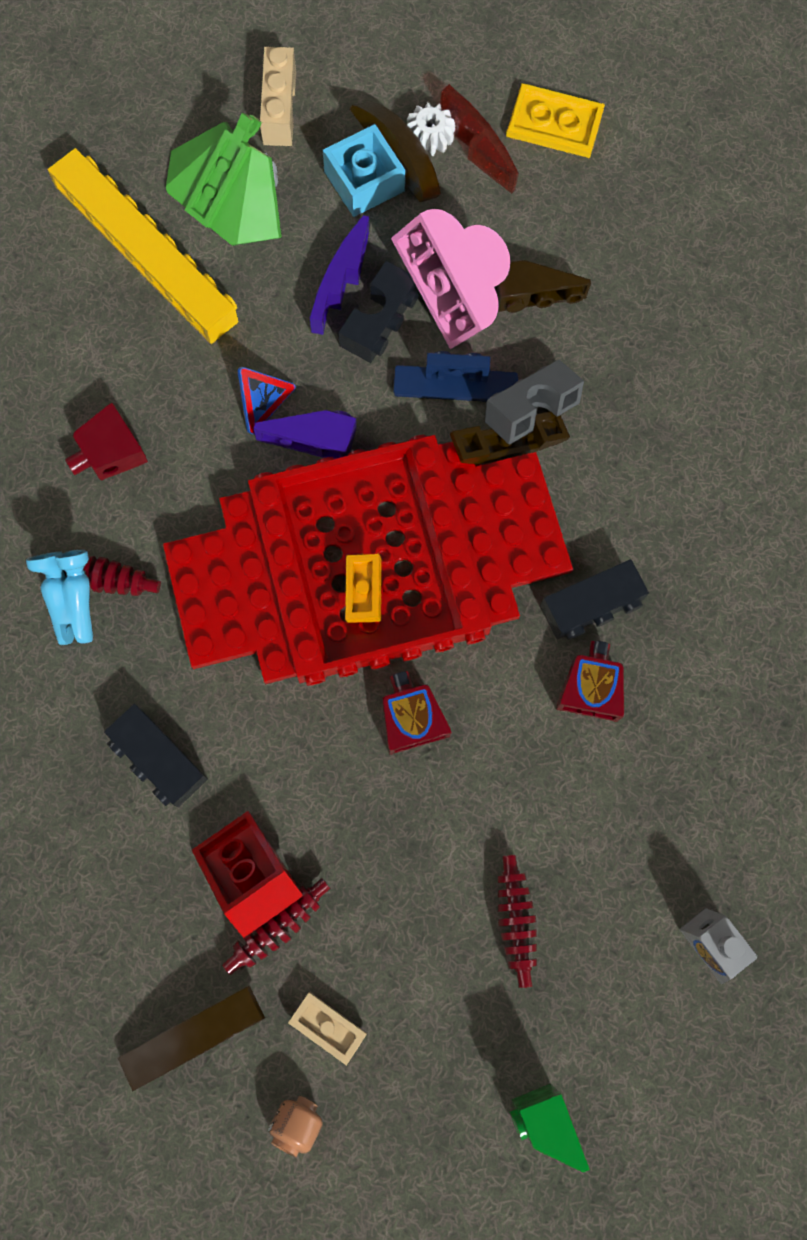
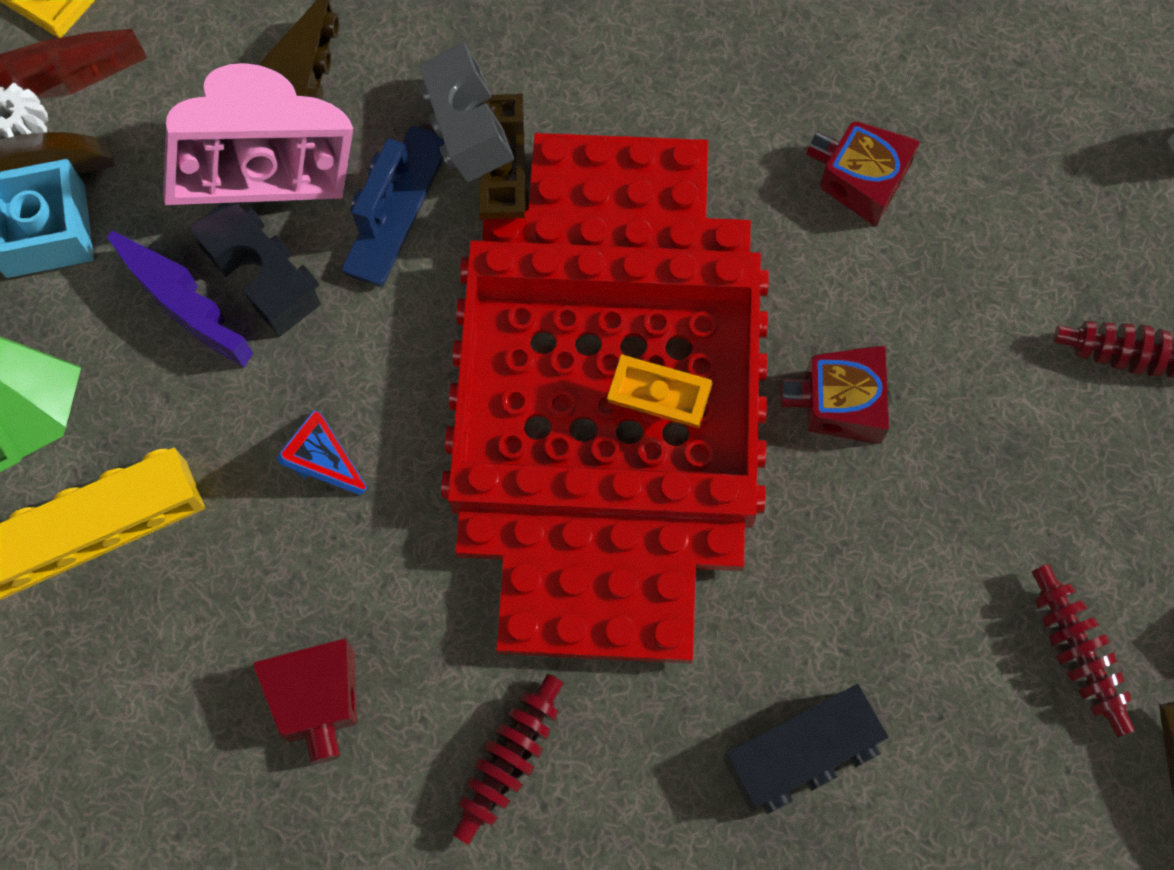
camera: 65 degrees left, 5 degrees down
(66, 596) = (537, 811): medium azure piece -> none
(246, 874) = (1005, 665): red slope -> none
(312, 433) = (406, 394): dark purple slope -> none
(594, 600) = (754, 132): black brick -> none

